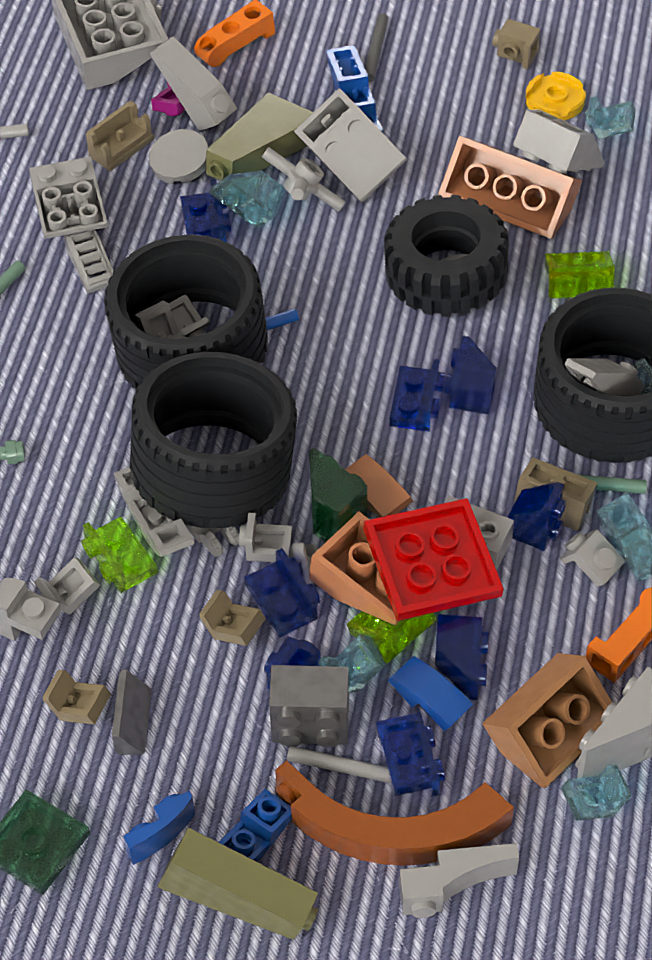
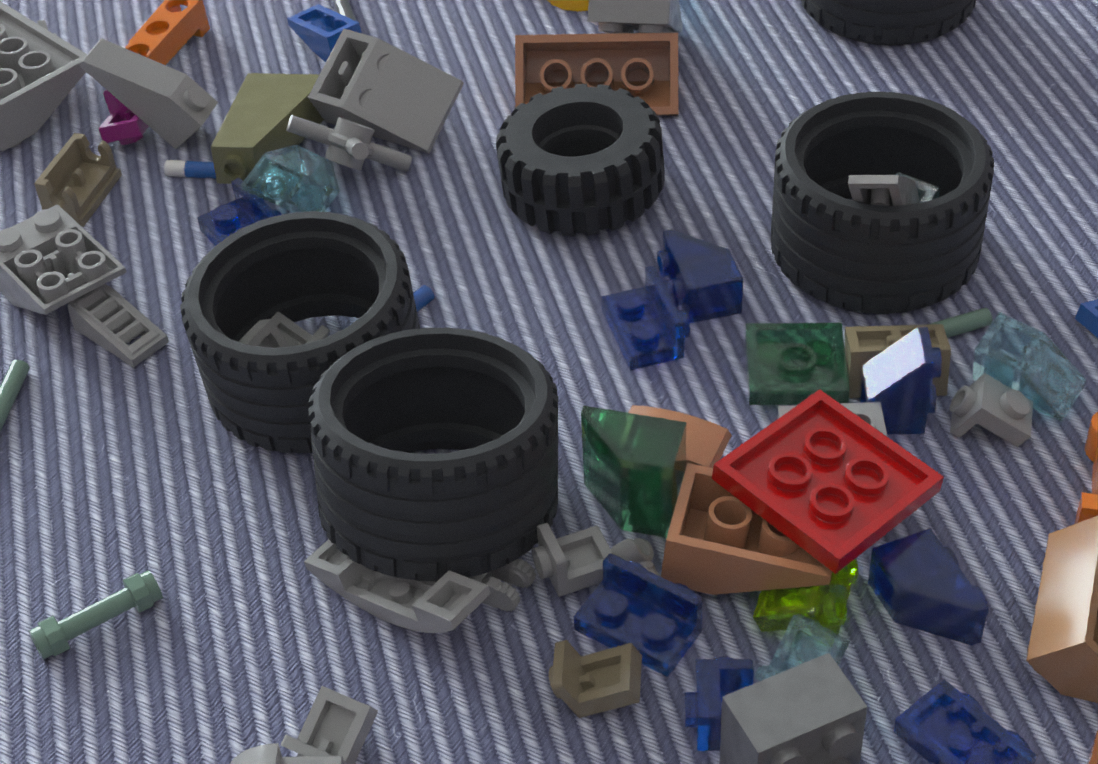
camera: 25 degrees left, 10 degrees down
(119, 554) = (375, 661): clear neon green bracket -> none
(179, 156) = (170, 177): light grey tile -> none
(435, 693) = (915, 648): blue slope -> none
(489, 467) = (794, 362): none -> clear green plate
(578, 272) = (740, 133): clear neon green bracket -> none

